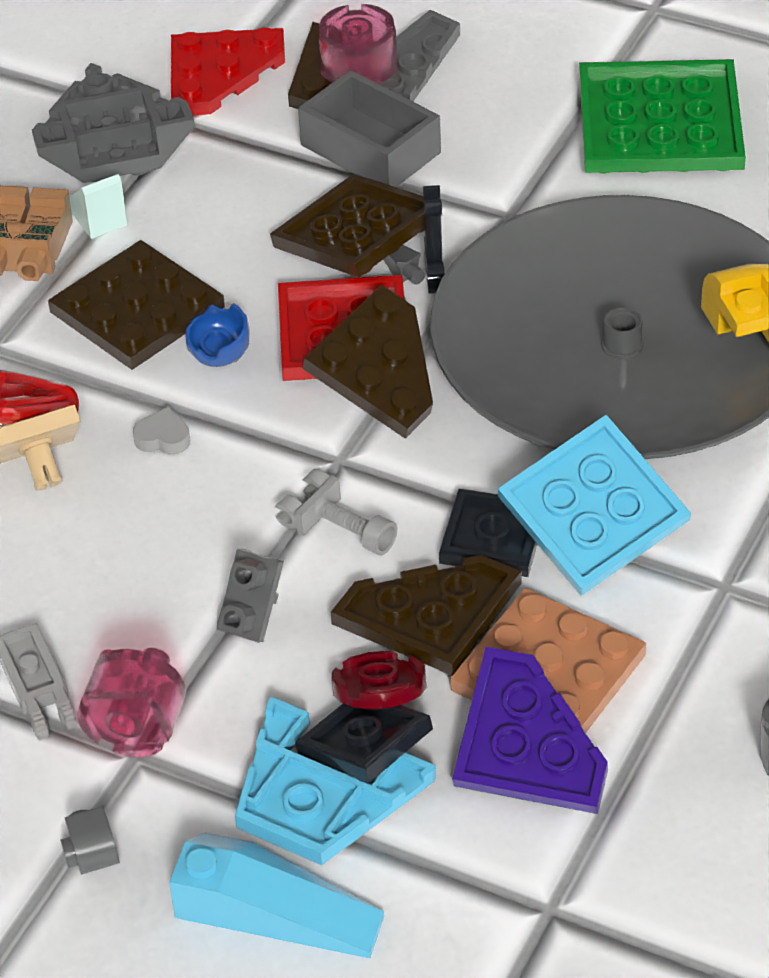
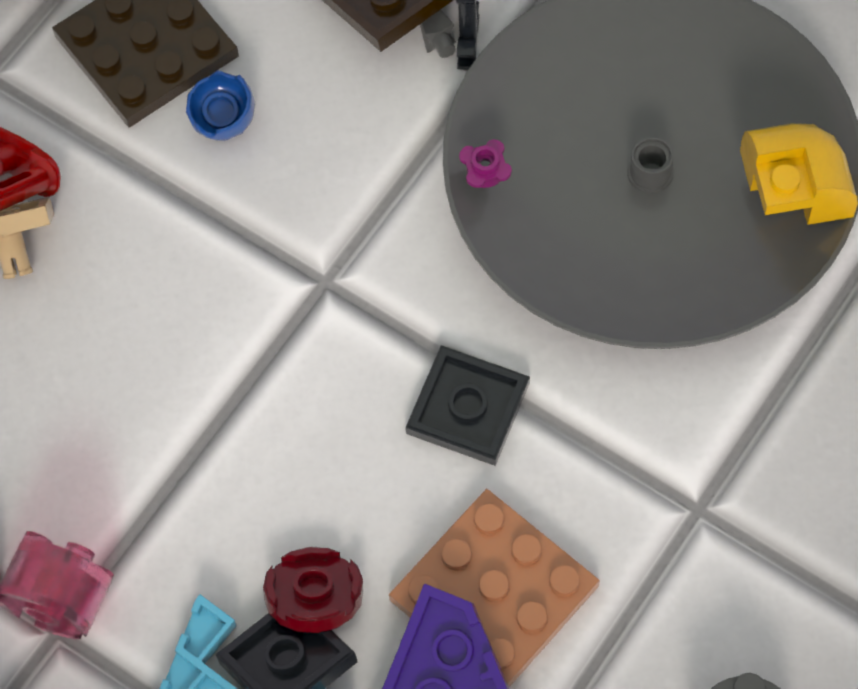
camera: 10 degrees right, 20 degrees up
(162, 432) = (145, 222): light grey tile -> none
(250, 595) = (196, 465): dark grey hips -> none
(315, 309) = (346, 99): red plate -> none
(323, 494) = (344, 394): light grey bar -> none
(378, 362) = (384, 166): dark brown plate -> none
(430, 610) = (383, 501): dark brown plate -> none
(474, 339) = (489, 175): none -> magenta plate
(594, 504) = (575, 401): medium azure plate -> none

